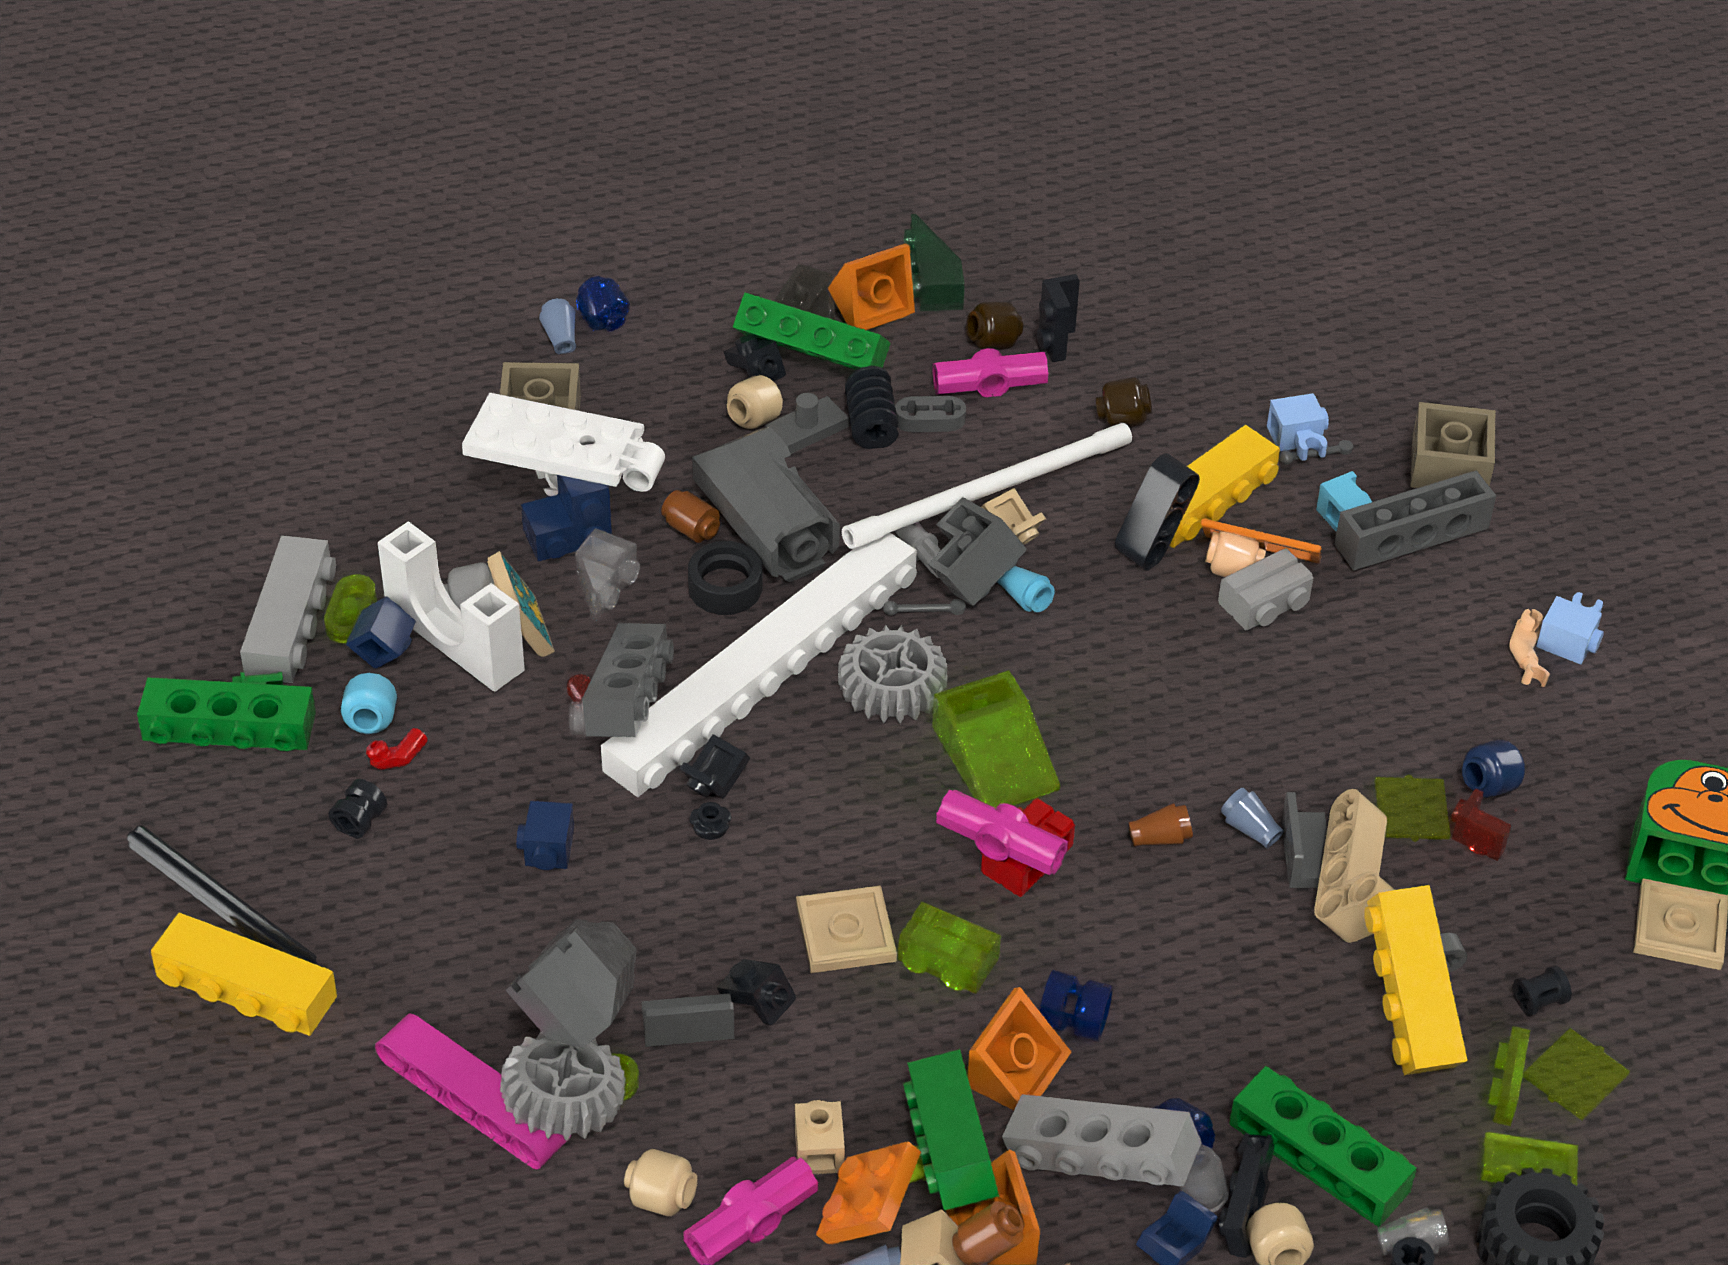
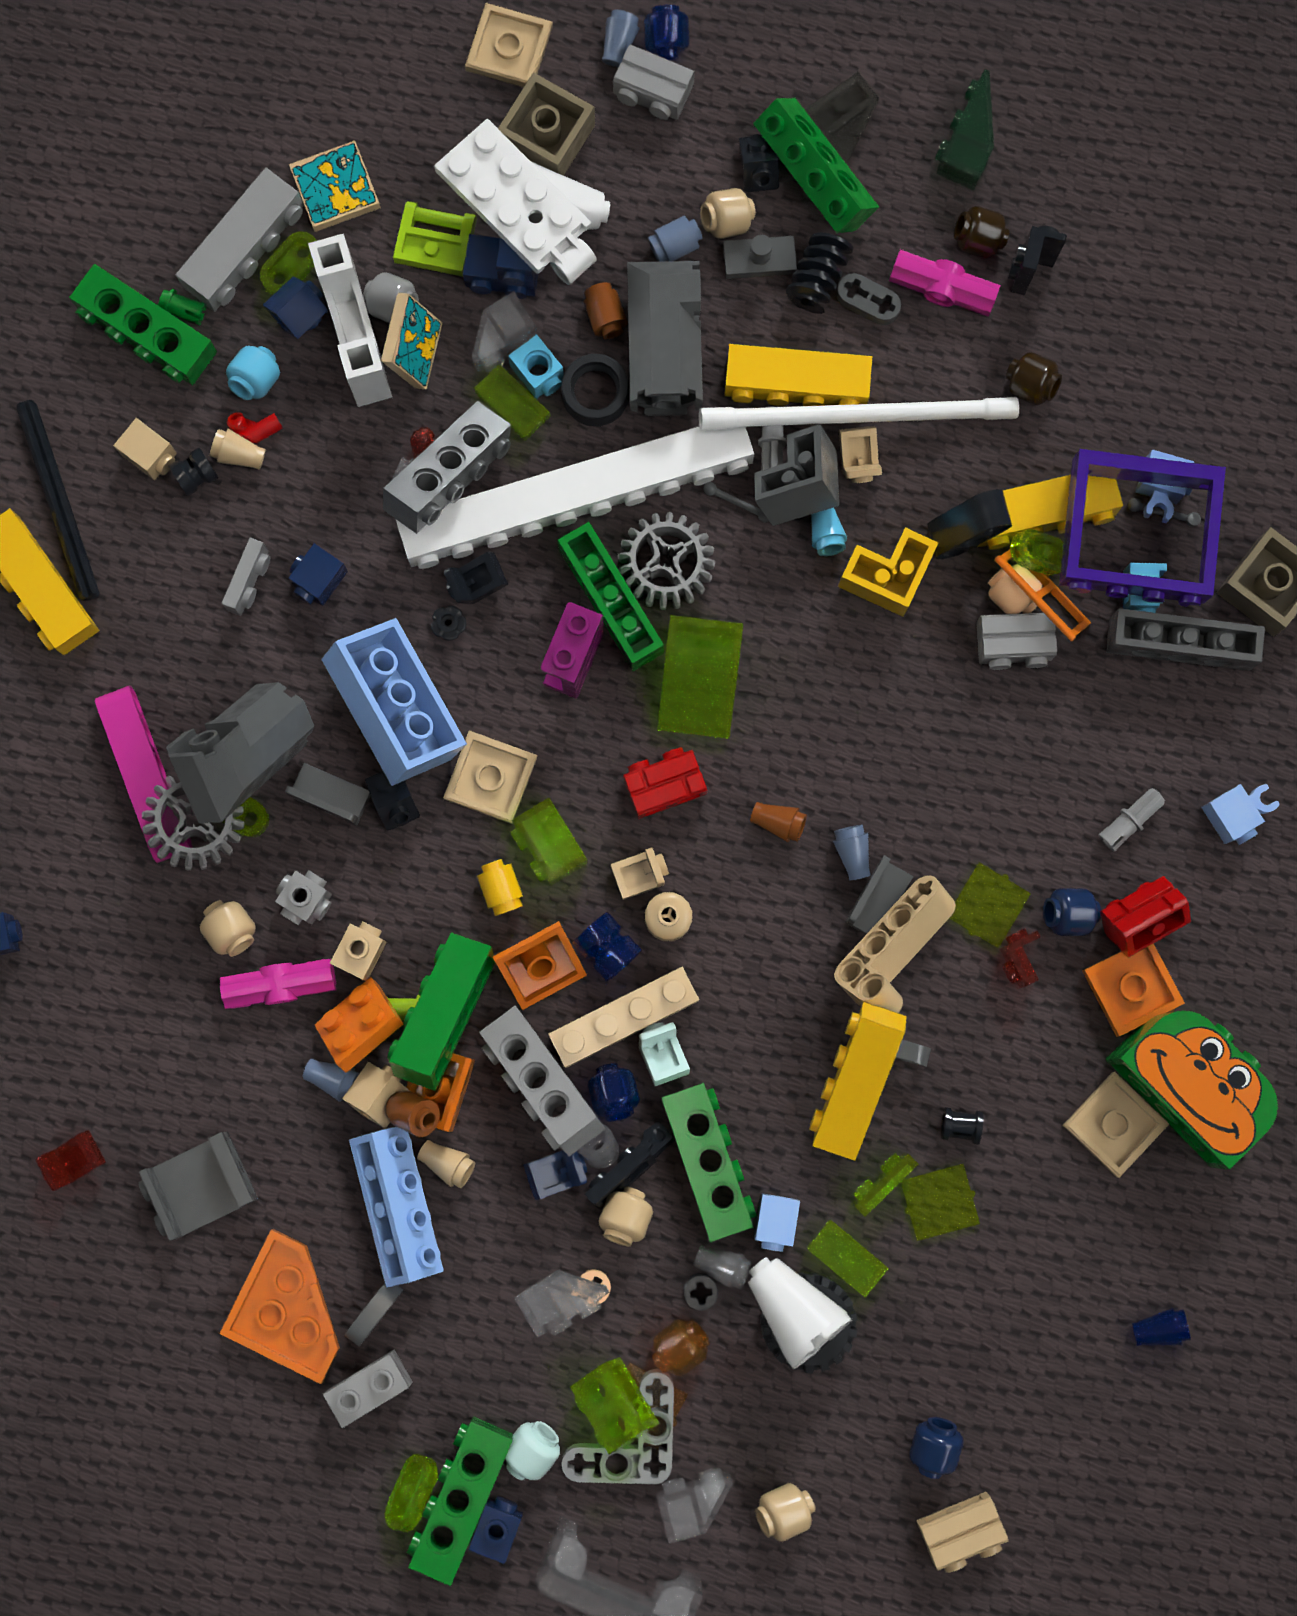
camera: 30 degrees right, 35 degrees up
(295, 811) = (146, 449): none -> tan brick
(353, 534) = (334, 186): none -> tile
(393, 773) = (235, 450): none -> tan cone
(457, 374) = (508, 45): none -> tan tile
(473, 857) = (251, 565): none -> light grey plate
(483, 533) = (431, 248): none -> lime plate
(616, 342) = (652, 83): none -> light grey brick
(643, 611) = (512, 402): none -> clear neon green plate
(656, 582) = (532, 354): none -> medium azure brick
(705, 891) = (393, 701): none -> light blue brick
(718, 432) = (675, 239): none -> sand blue brick
(726, 1114) = (317, 898): none -> light grey brick
(862, 718) = (610, 596): none -> green brick
(862, 770) = (572, 649): none -> magenta panel
(875, 288) = (900, 144): orange slope -> none
(906, 481) = (796, 376): none -> yellow brick
(927, 1011) = (500, 887): none -> yellow brick
(1002, 832) = (638, 776): dark pink piece -> none
(1061, 929) = (640, 873): none -> tan bracket
(1114, 591) = (889, 581): none -> yellow brick
(1117, 950) = (668, 930): none -> tan head
(1146, 1045) = (624, 1017): none -> tan brick
(1200, 1073) = (662, 1053): none -> light aqua bracket
(1233, 512) = (1037, 551): none -> clear neon green plate
(1295, 402) = (1147, 471): none -> dark purple window
(1438, 1161) = (776, 1221): none -> light blue brick
(1484, 678) = (1131, 819): none -> light grey axle
(1522, 644) = (1188, 802): light nougat arm -> none
(1523, 1188) = (795, 1310): none -> white cone
(1562, 735) = (1145, 916): none -> red brick
(1597, 803) = (1133, 988): none -> orange plate

